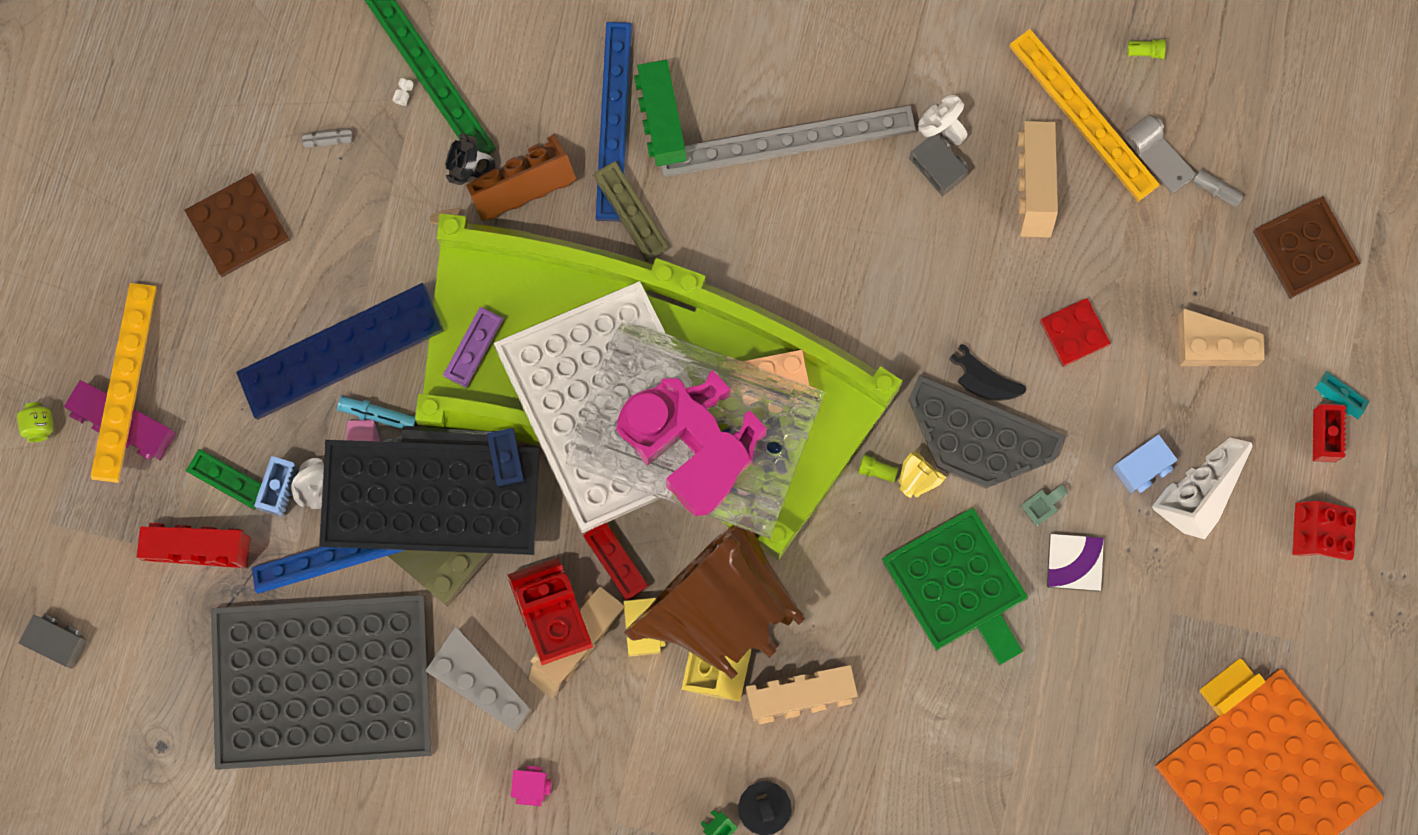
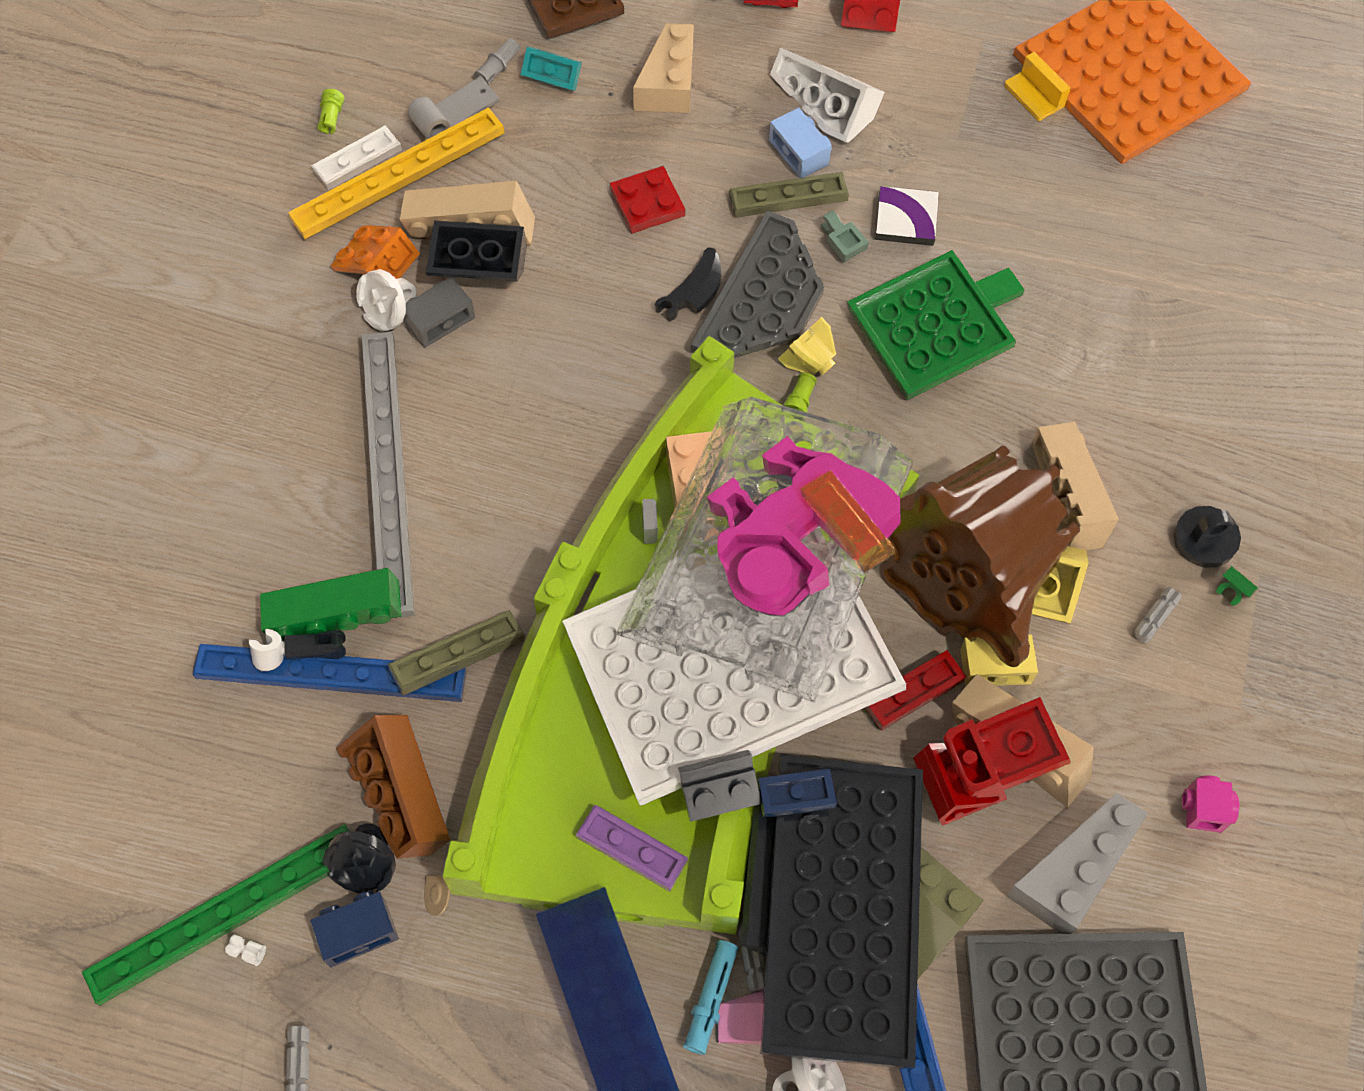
camera: 90 degrees left, 15 degrees down
(418, 163) = (354, 928): none -> dark blue brick
(506, 399) = (719, 785): none -> plate
(626, 94) = (303, 646): none -> piece
(685, 470) = (847, 521): none -> clear orange tile
(690, 760) = (1157, 615): none -> light grey axle
(734, 344) = (649, 521): none -> light grey tile
(991, 189) = (476, 251): none -> black slope
(992, 107) = (377, 249): none -> orange bracket
(1091, 457) = (788, 194): none -> olive tile
(1100, 78) = (356, 157): none -> white tile
(1212, 236) = (551, 68): none -> teal plate

